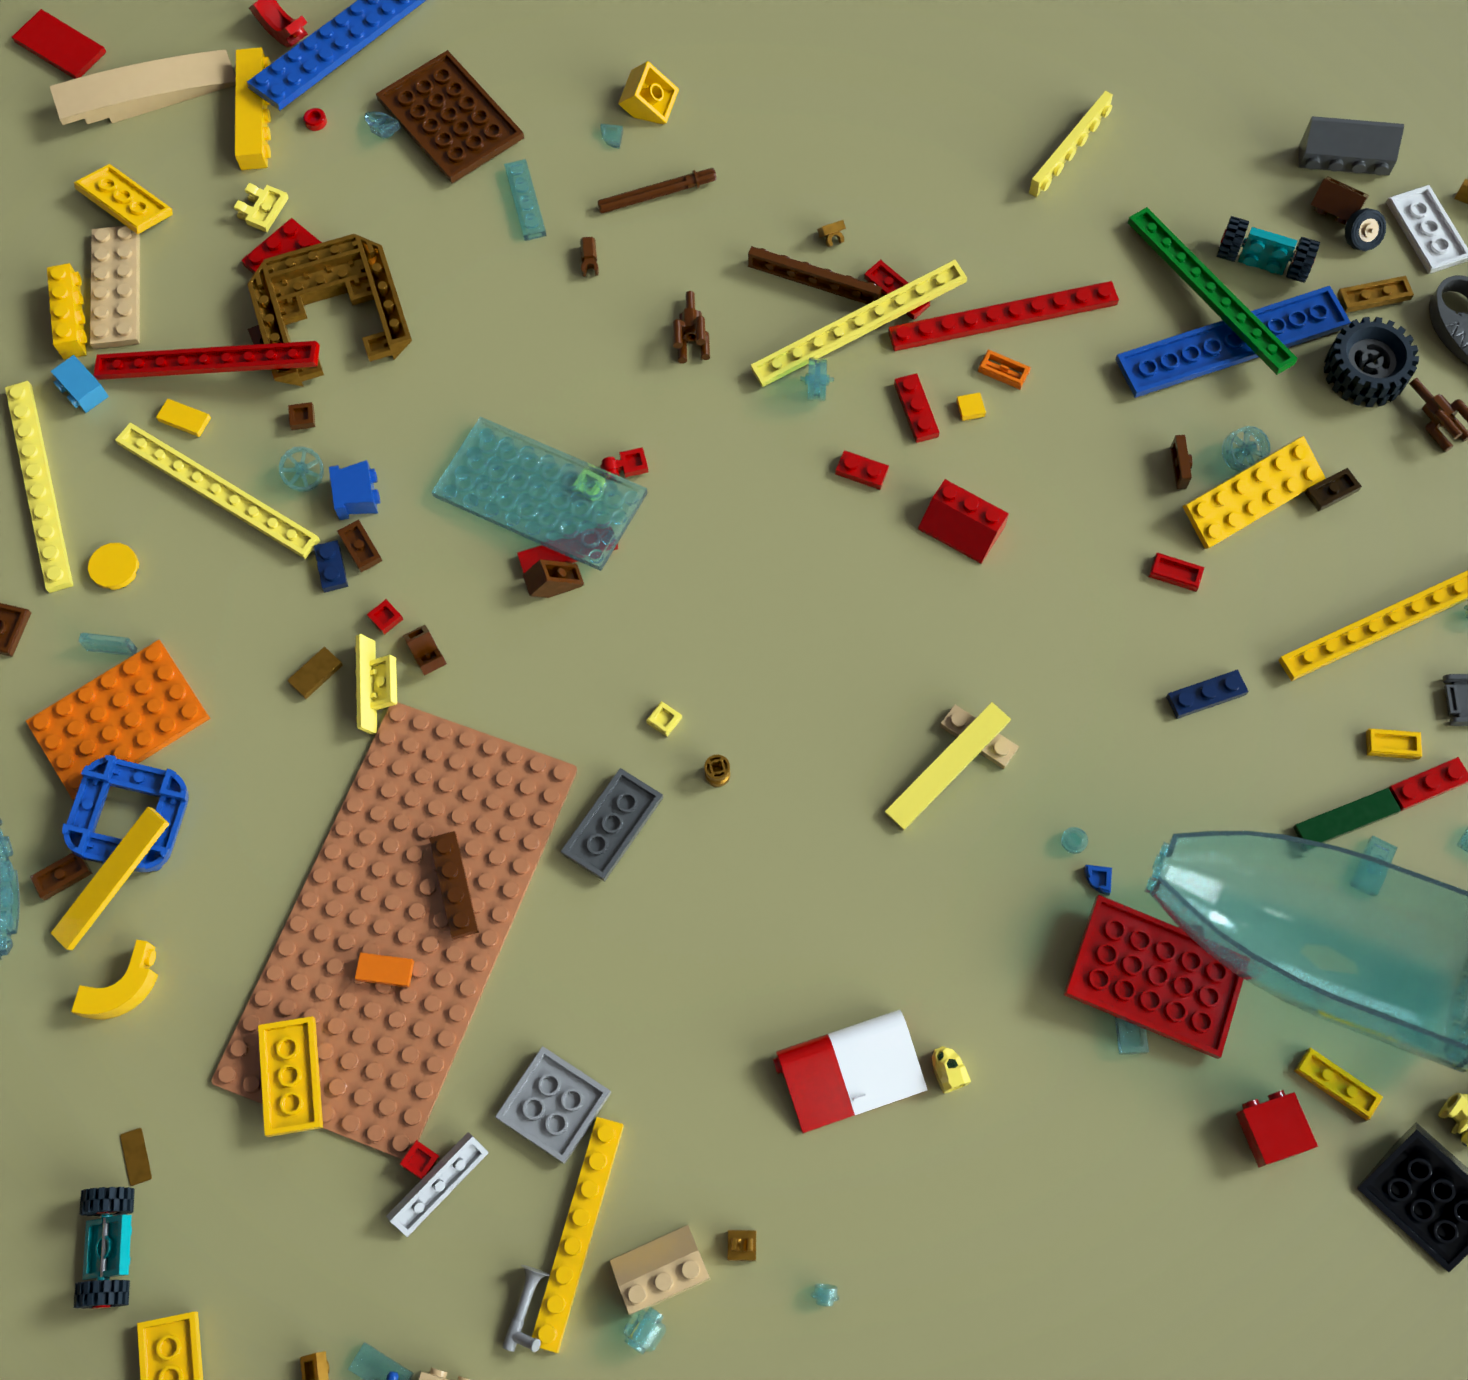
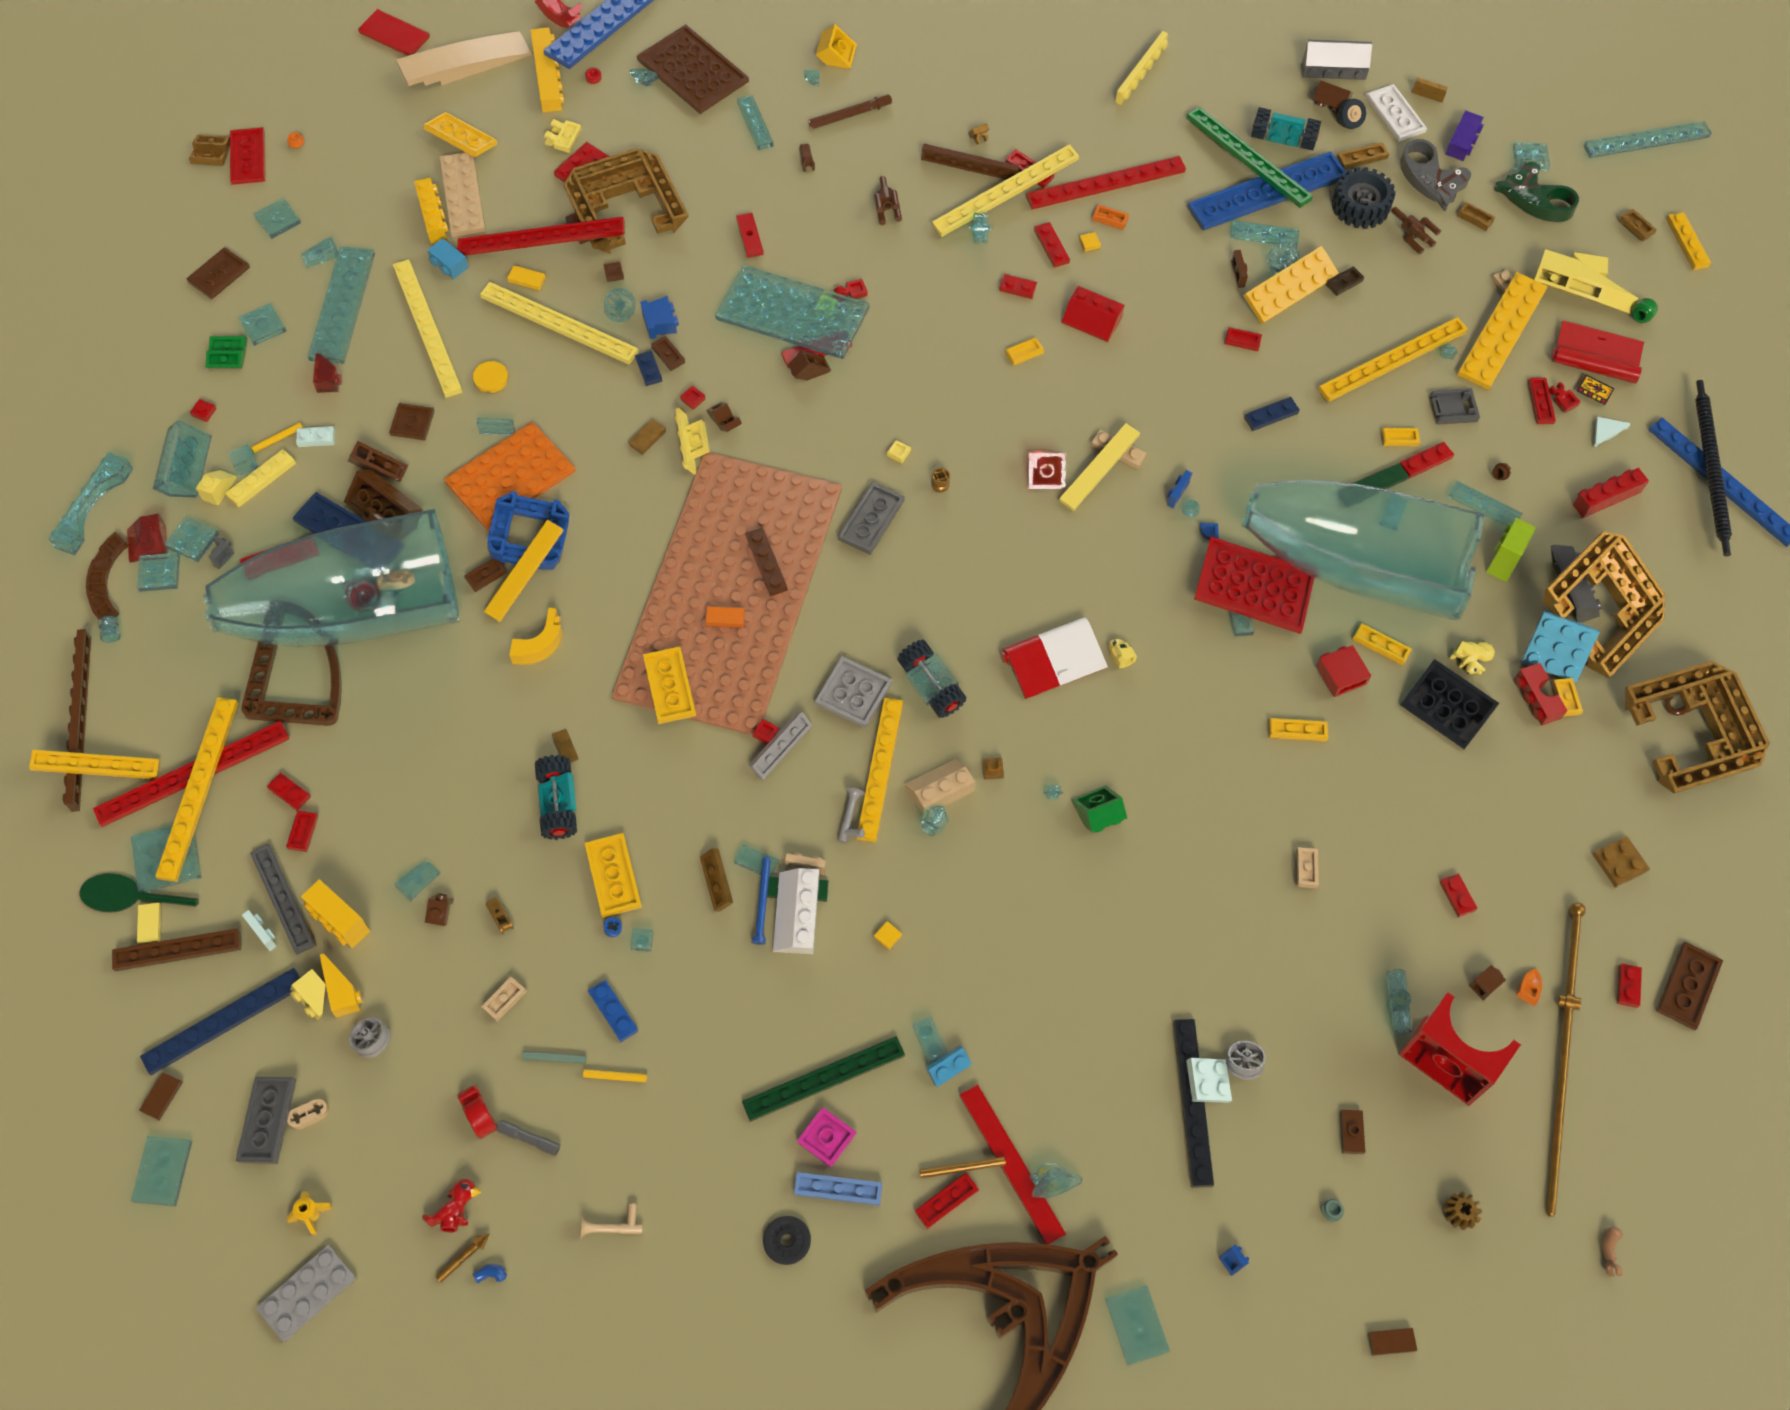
camera: 10 degrees left, 5 degrees down
(495, 370) = (749, 235): none -> red tile
(666, 1096) = (931, 678): none -> plate
(860, 571) = (1024, 351): none -> yellow tile
(869, 763) = (1045, 469): none -> clear red slope
(890, 1330) = (1100, 809): none -> green slope
(1065, 799) = (1181, 484): none -> blue plate
(1200, 1217) = (1298, 729): none -> yellow tile
(1223, 407) = (1263, 233): none -> clear light blue plate

